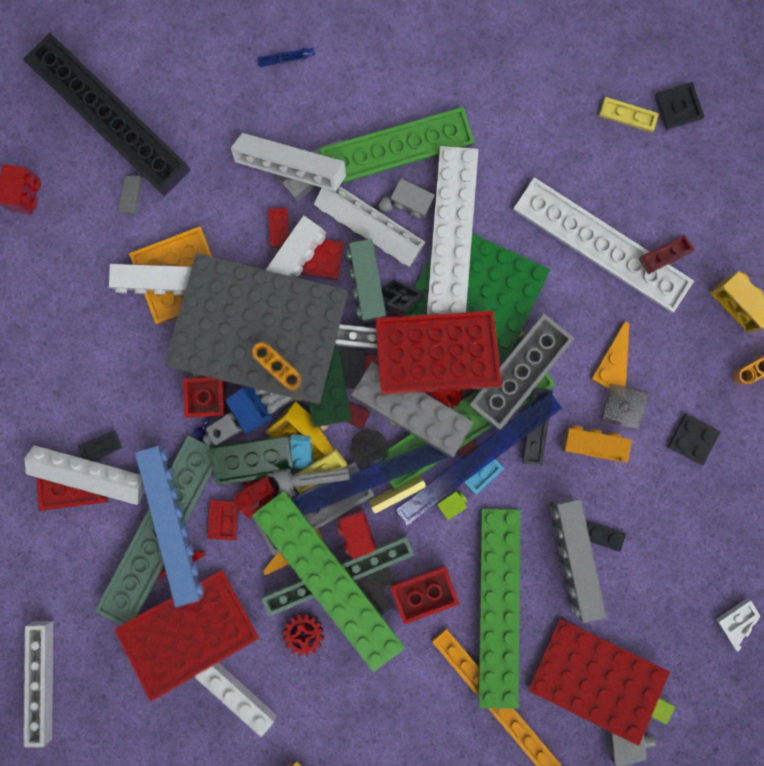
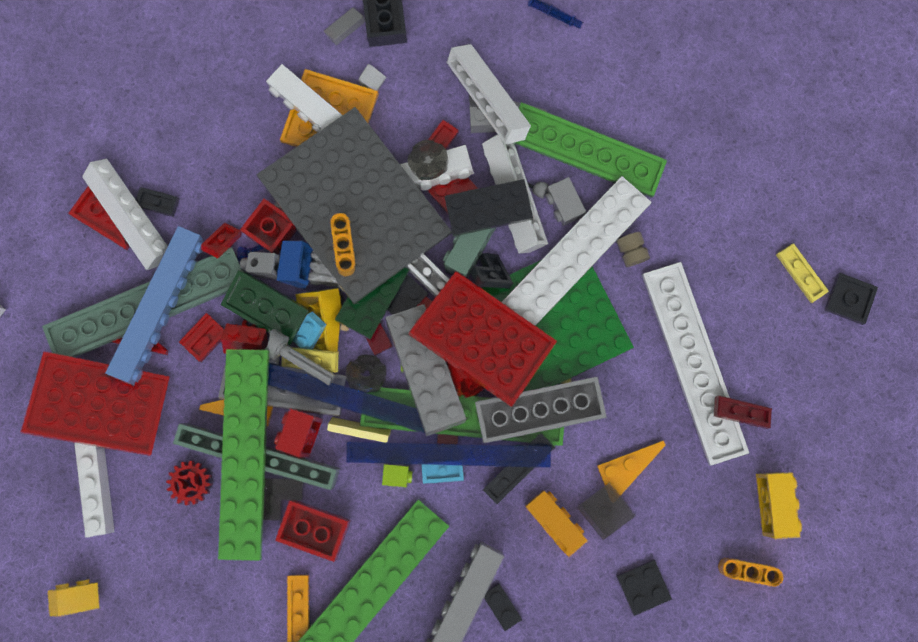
camera: 45 degrees right, 5 degrees down
(175, 436) = (221, 240): none -> red plate
(186, 219) = (371, 78): none -> light grey slope
(290, 259) = (431, 170): none -> clear smoke plate
(362, 250) = (488, 207): none -> black plate
(491, 195) = (633, 250): none -> dark tan wheel

